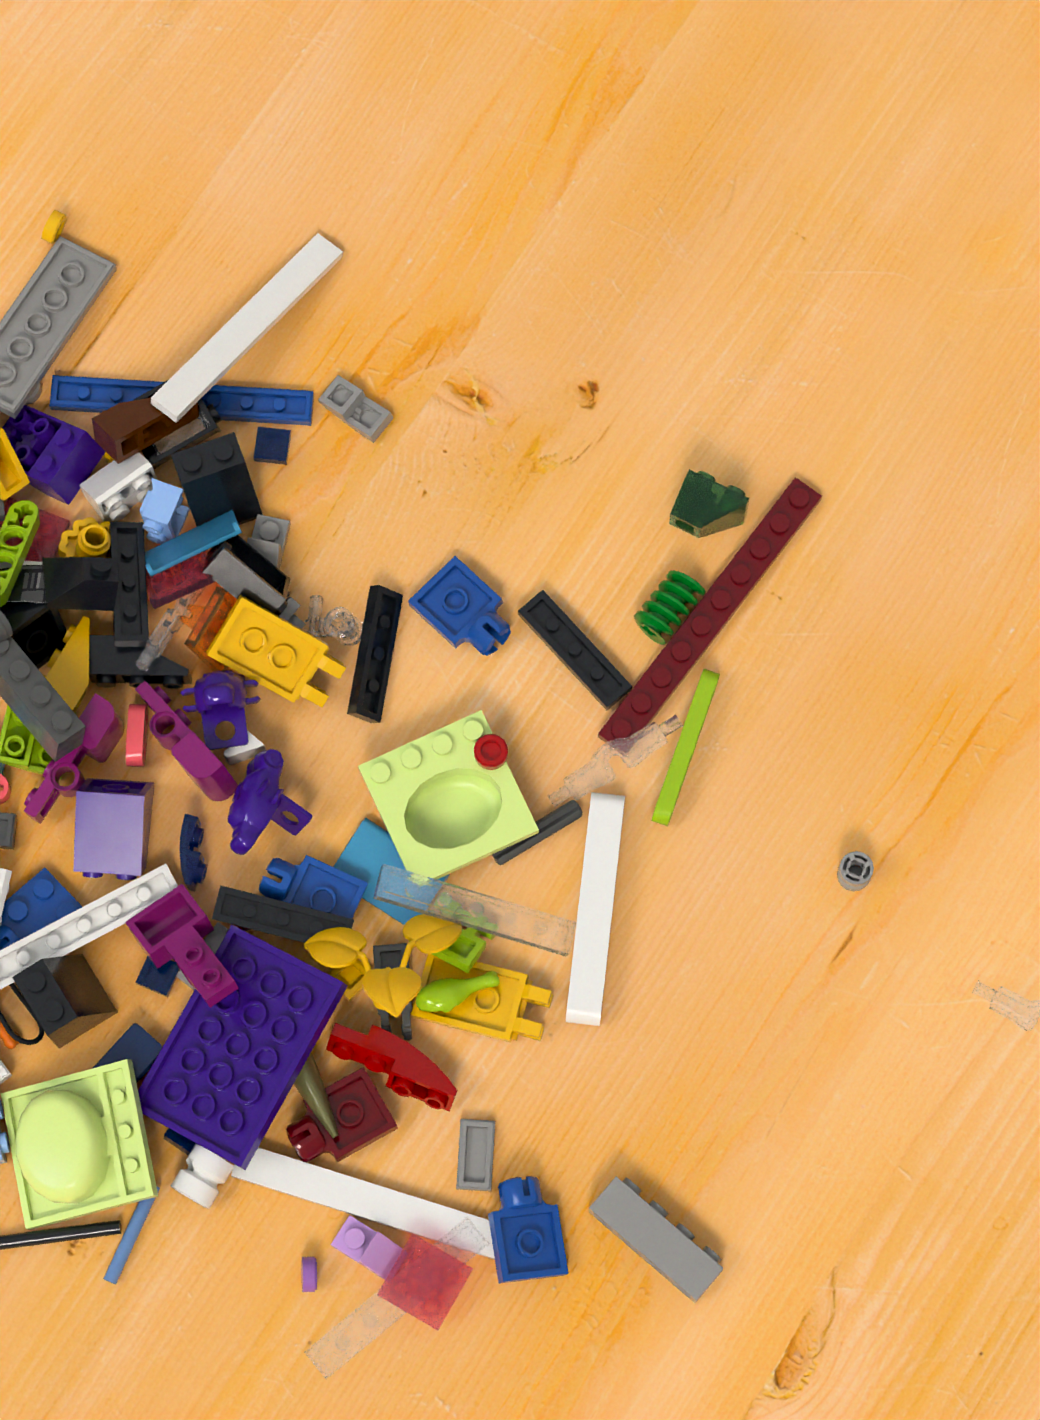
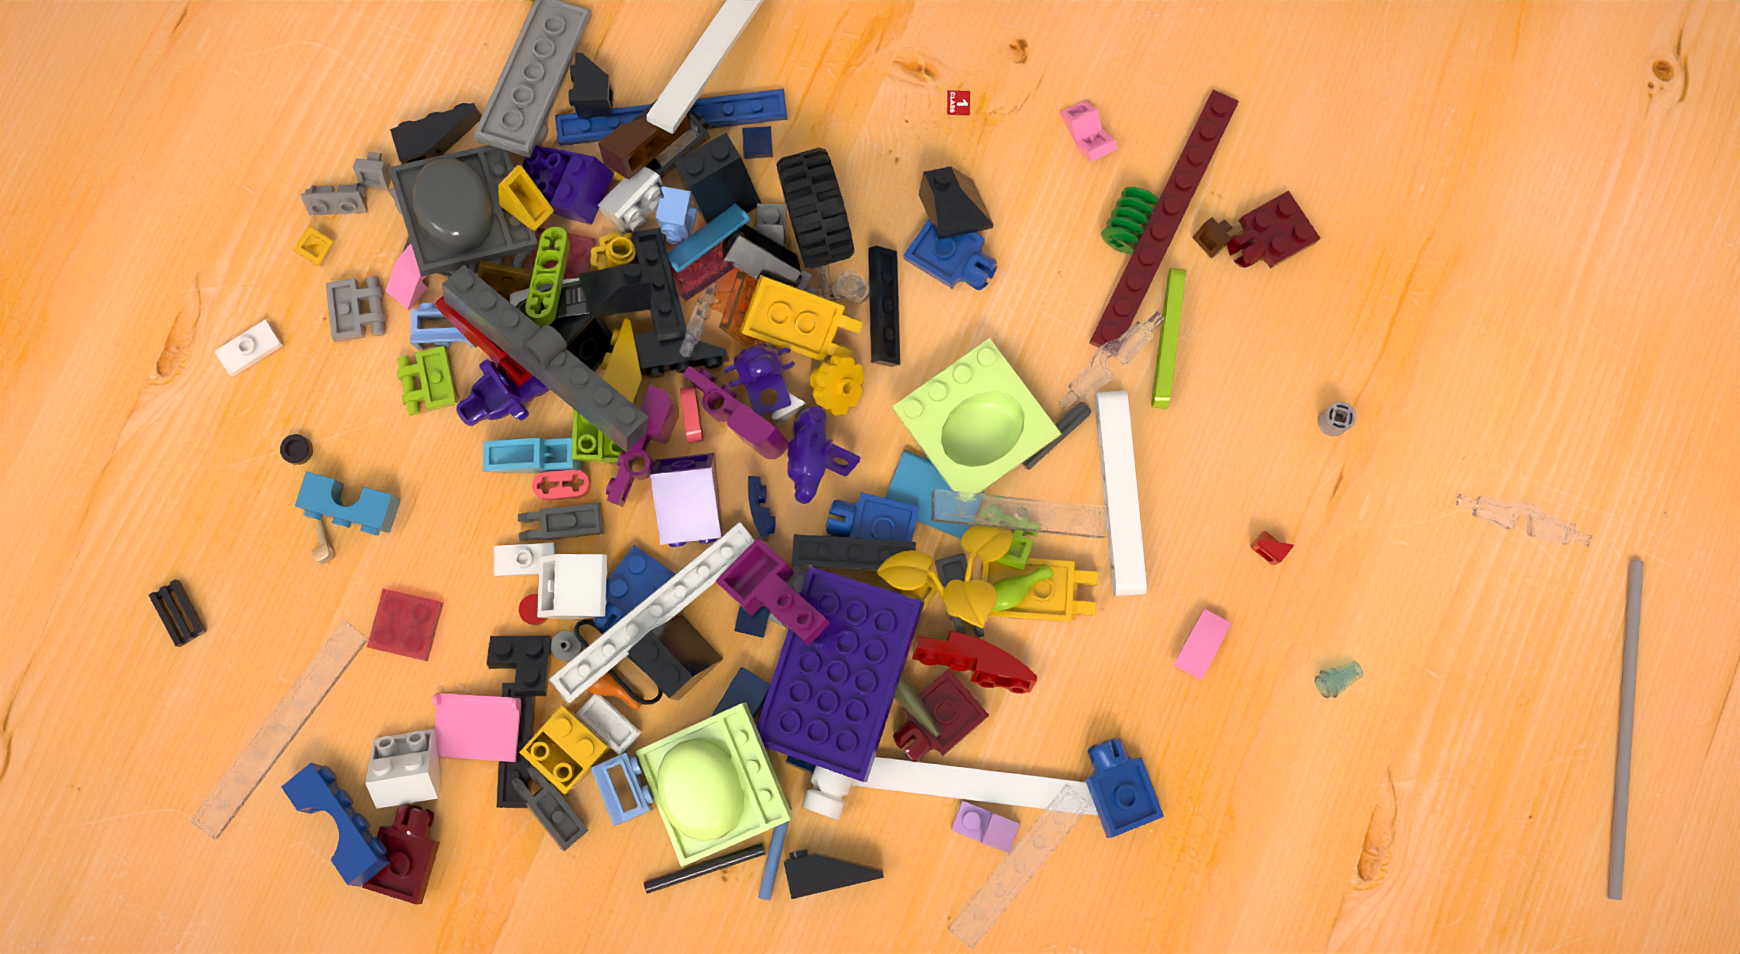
camera: 10 degrees left, 5 degrees up
(98, 355) = (591, 90): none -> black slope
(173, 1263) = (820, 873): none -> black slope
(305, 731) = (837, 384): none -> yellow plant
(309, 1274) = (938, 860): medium lavender tile -> none
(316, 532) = (815, 207): none -> black tyre
(355, 409) = (822, 98): light grey slope -> none
(425, 1281) = (1043, 849): clear pink tile -> none
(475, 553) = (953, 203): none -> black slope
(475, 1155) = (1060, 726): light grey tile -> none
(490, 751) = (1006, 373): red tile -> none
(507, 441) = (958, 102): none -> red sticker
(574, 650) = (1055, 271): black plate -> none
(644, 499) = (1086, 130): none -> bright pink slope
(651, 1092) = (1202, 644): none -> bright pink slope
(656, 1239) = (1234, 772): light grey brick -> none
(707, 506) = (1147, 125): clear green slope -> none
(751, 1000) = (1270, 548): none -> red slope
(759, 642) = (1213, 236): none -> reddish brown tile
(794, 1159) = (1337, 679): none -> clear light blue cone
(828, 651) = (1272, 233): none -> dark red plate

